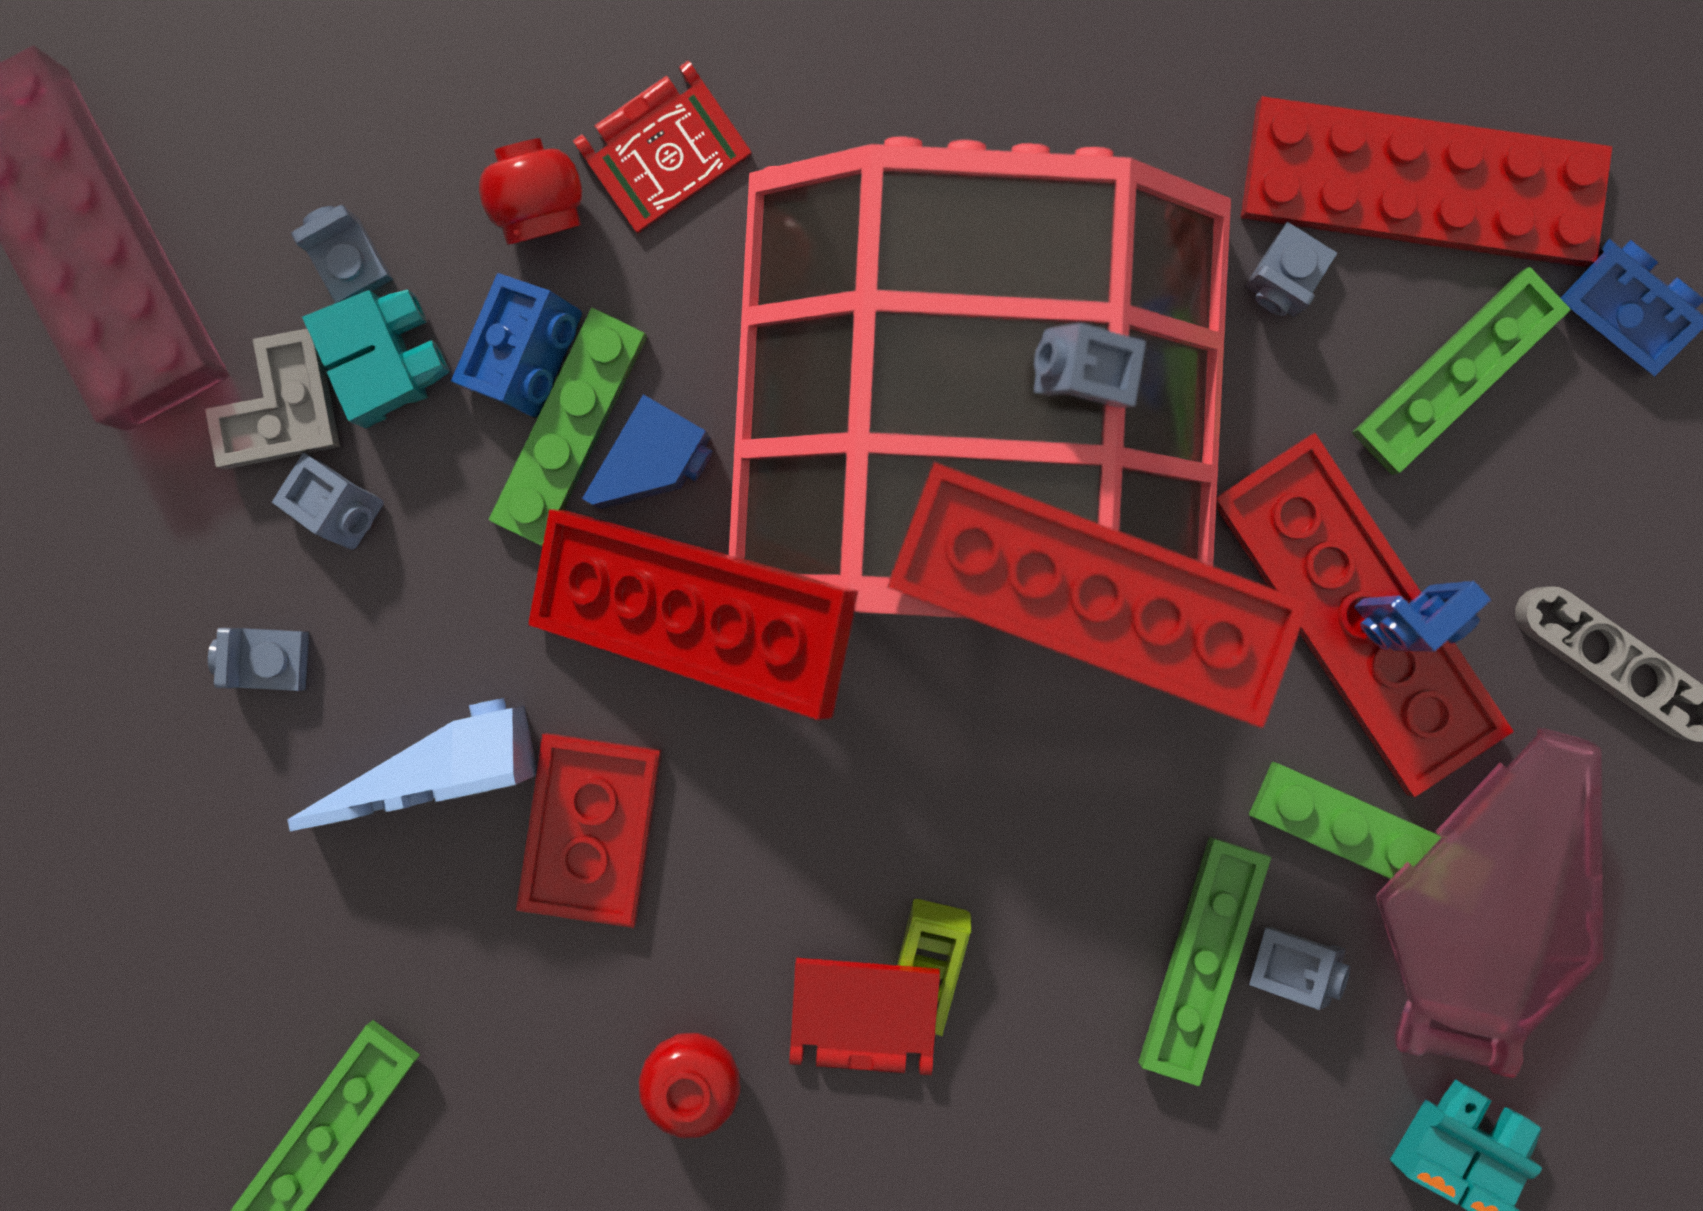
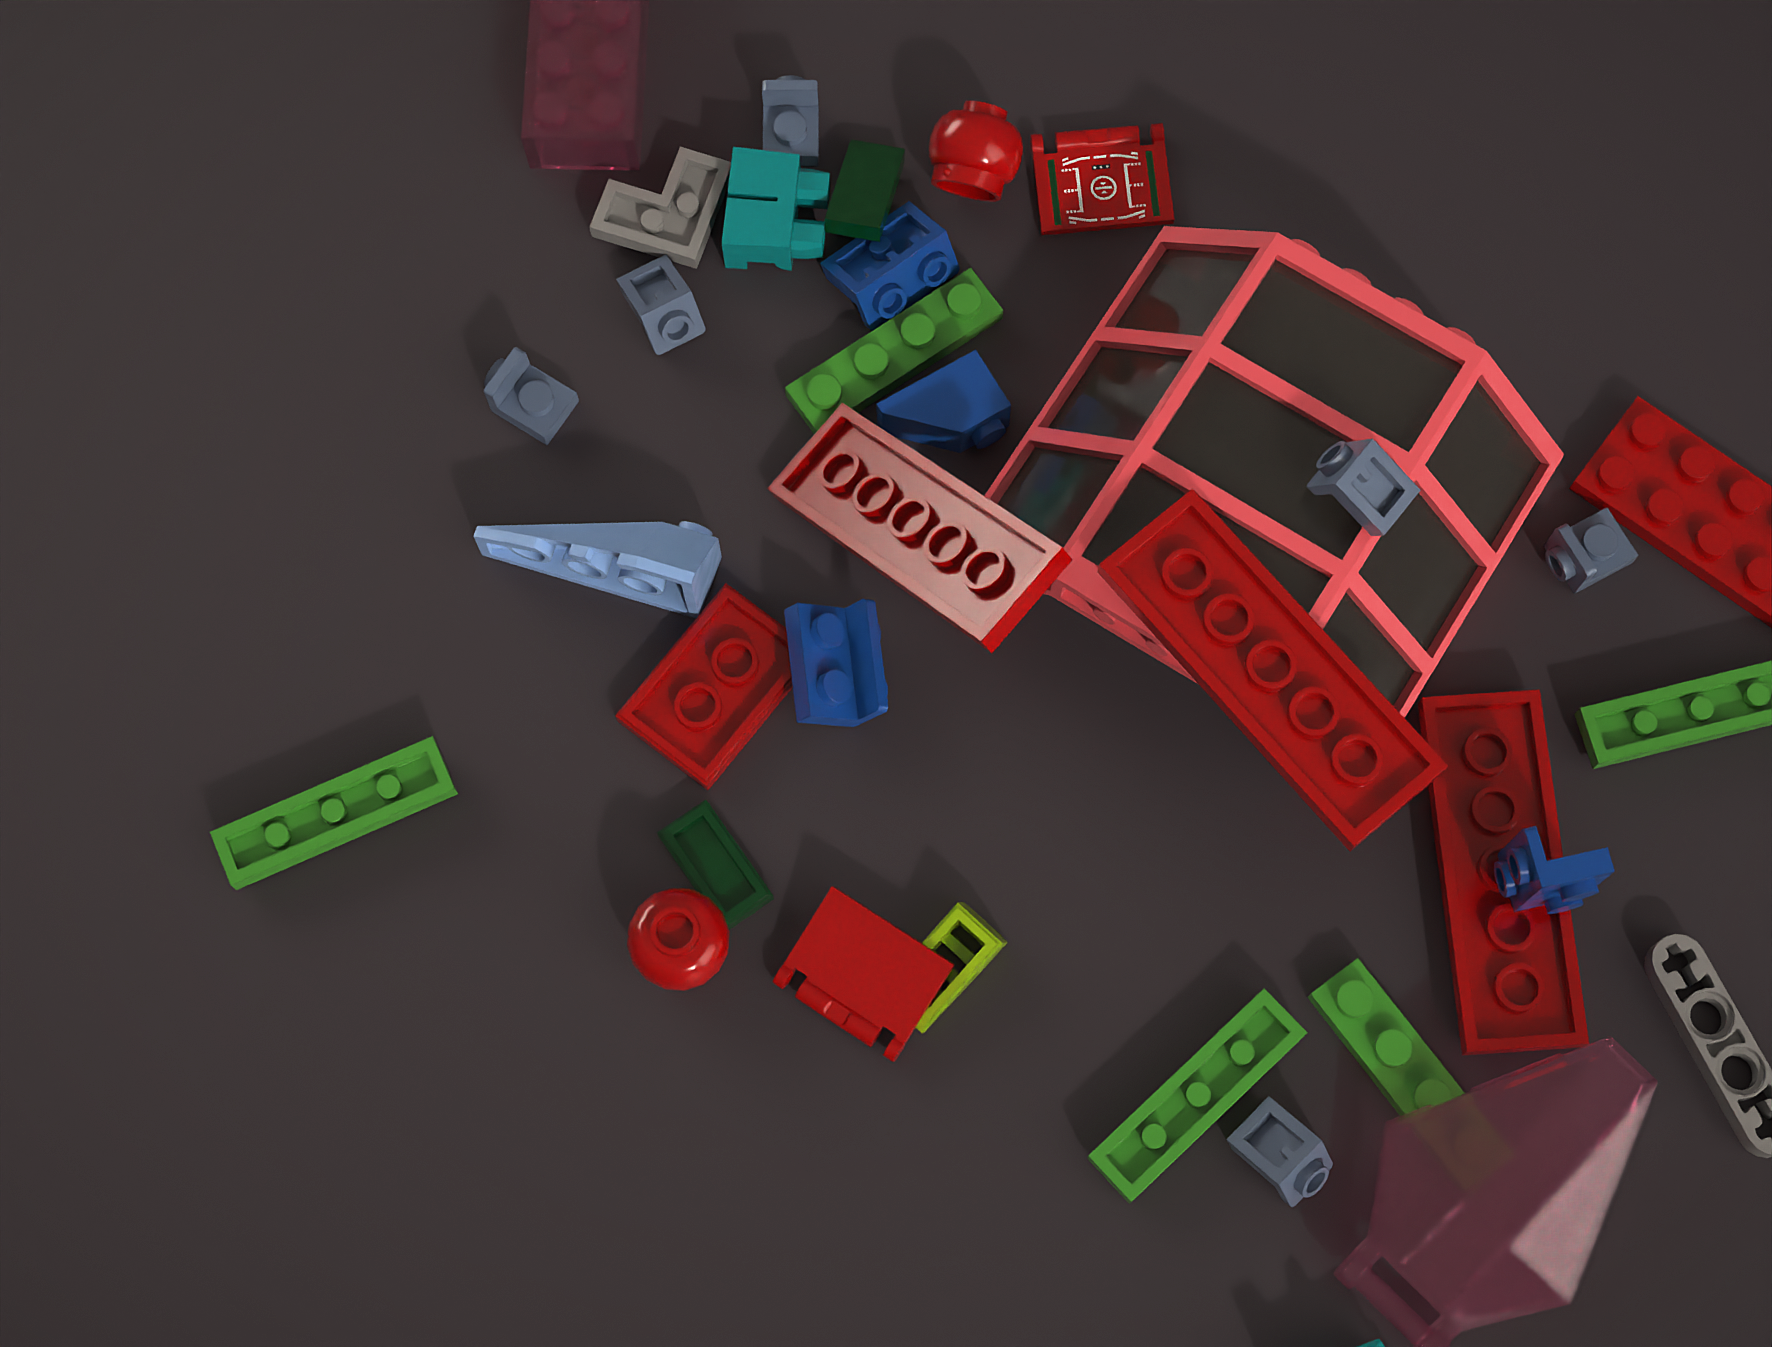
camera: 35 degrees right, 15 degrees down
(450, 286) = (864, 190): none -> dark green tile
(681, 990) = (715, 863): none -> dark green tile
(683, 757) = (836, 663): none -> blue bracket

